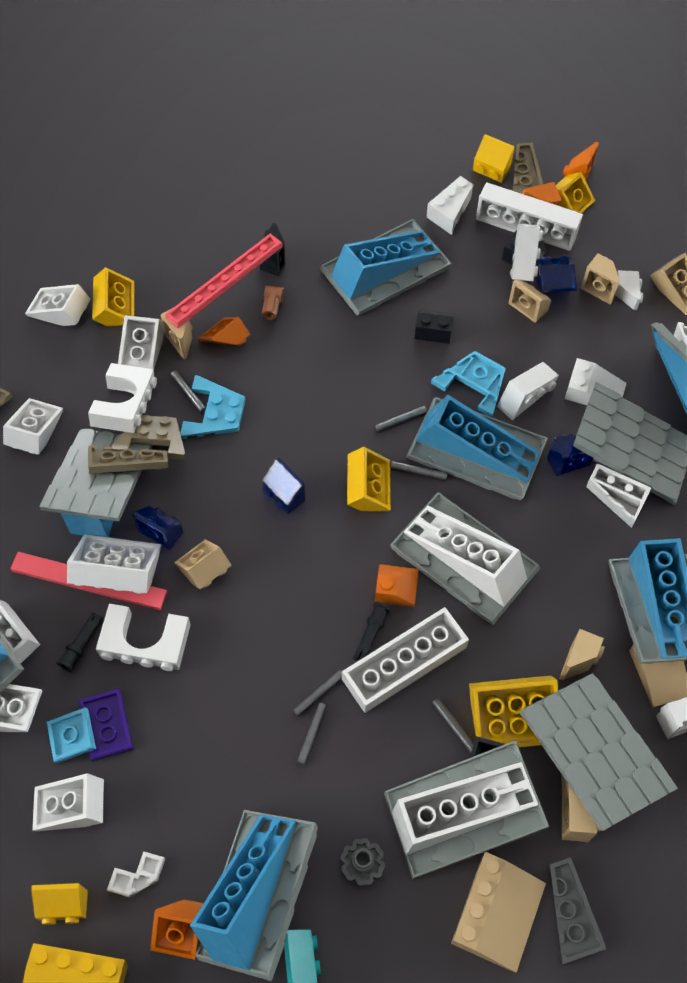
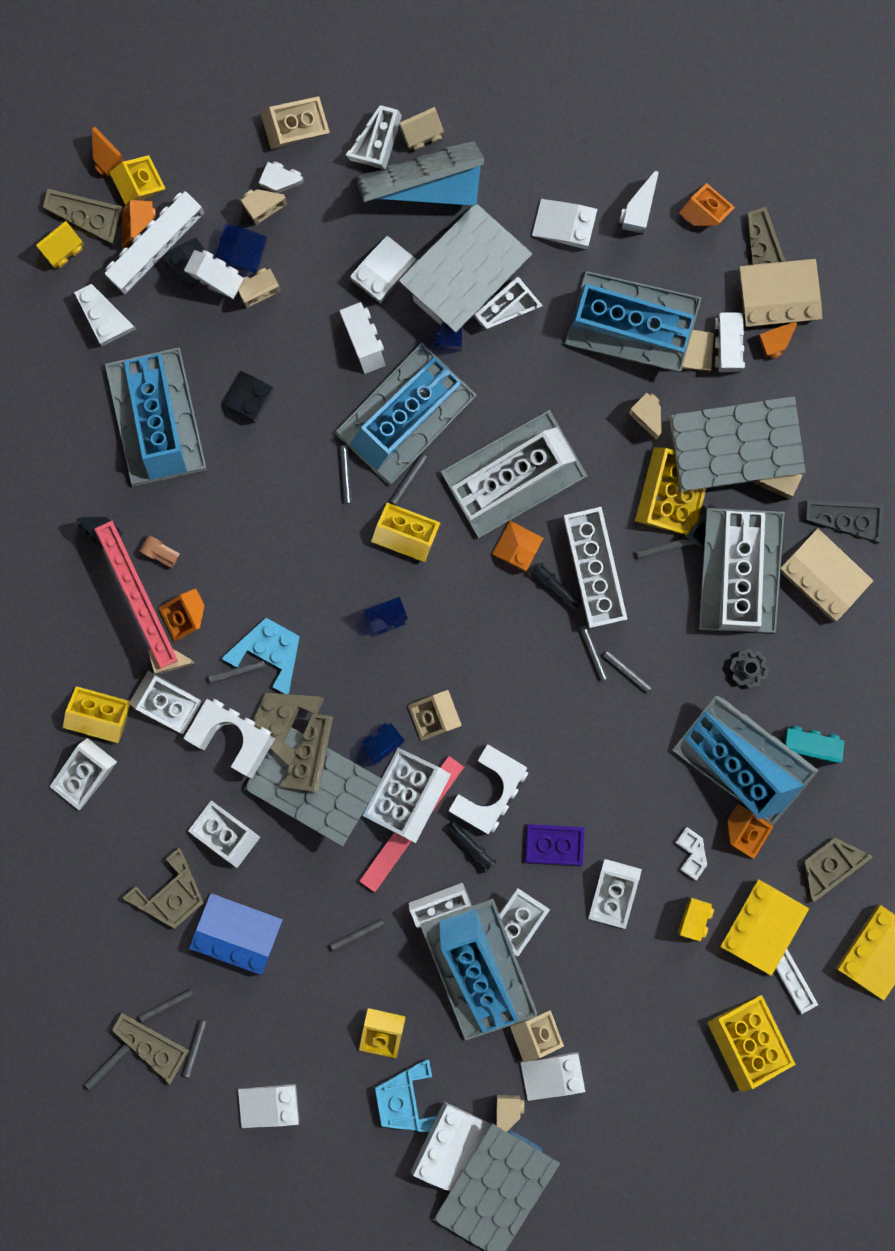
camera: 70 degrees left, 25 degrees up
(71, 735) = (555, 876): medium azure tile -> none
(478, 373) = (326, 376): medium azure wing -> none

